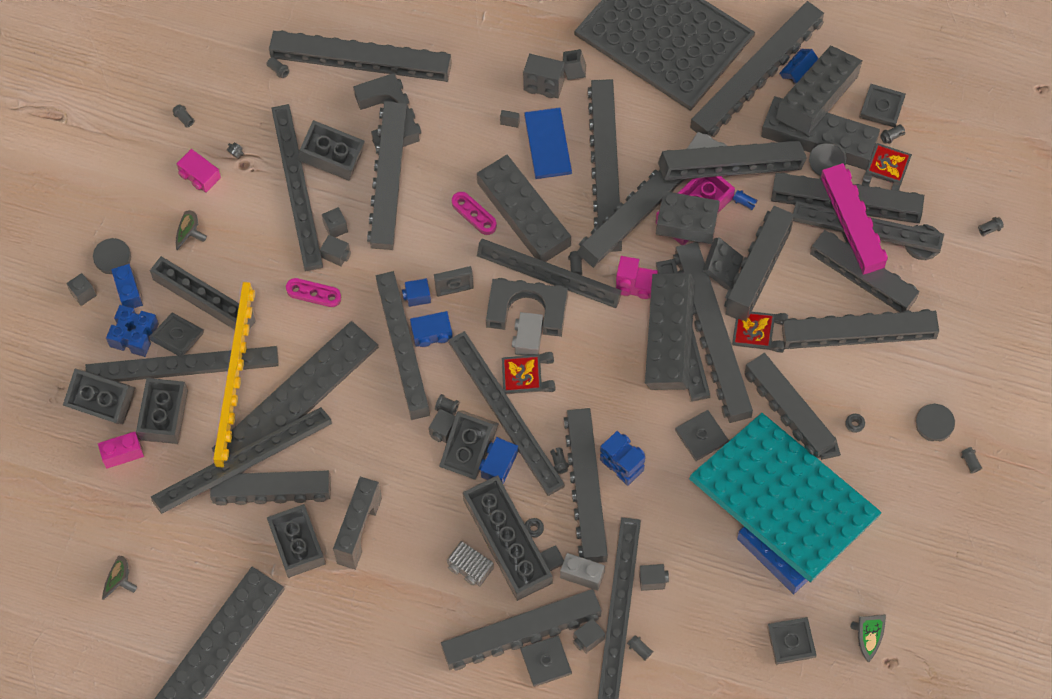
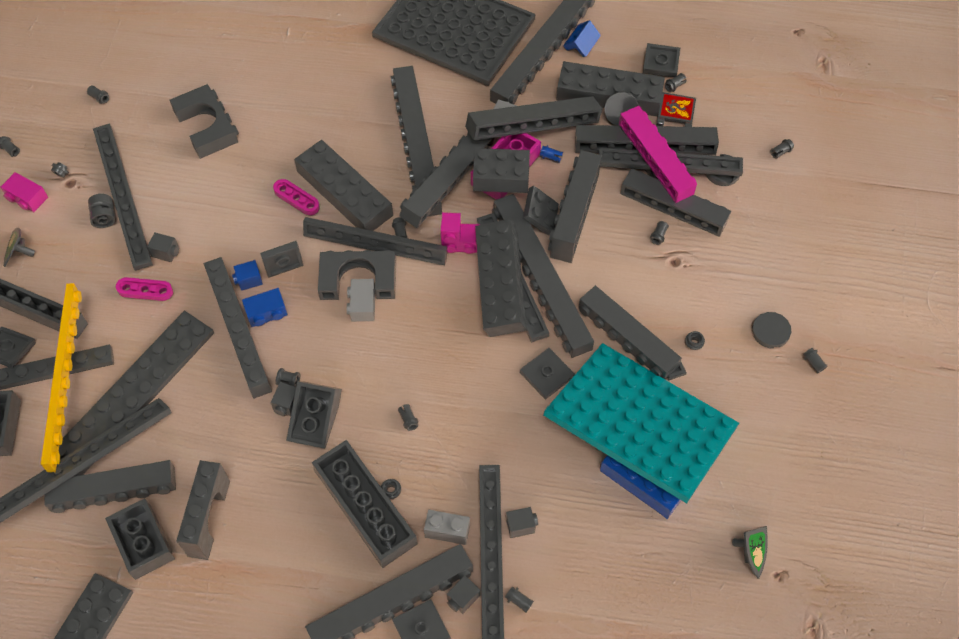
camera: 10 degrees left, 5 degrees down
(275, 202) = (101, 211): none -> dark grey wheel
(331, 150) = (151, 157): dark grey brick -> none
(335, 222) = (160, 221): dark grey brick -> none
(360, 55) = (175, 75): dark grey brick -> none
(388, 176) = (208, 173): dark grey brick -> none
(470, 564) = (328, 536): light grey brick -> none
(499, 459) = (347, 424): blue brick -> none
(506, 413) = (350, 380): dark grey plate -> none
(509, 118) = (321, 111): dark grey tile -> none
(523, 373) = (363, 338): flag -> none
(543, 76) = (348, 70): dark grey brick -> none
(548, 143) = (359, 129): blue tile -> none
(552, 558) = (414, 517): dark grey tile -> none
(574, 64) = (375, 58): dark grey brick -> none
(587, 487) = (439, 438): dark grey brick -> none
(622, 457) = (471, 404): blue brick -> none
(758, 331) = (585, 268): flag -> none
(791, 640) = (676, 568): dark grey plate -> none
(819, 89) = (602, 50): dark grey brick -> none
(839, 307) = (657, 236): none -> dark grey pin
(860, 329) = (681, 253): dark grey brick -> none

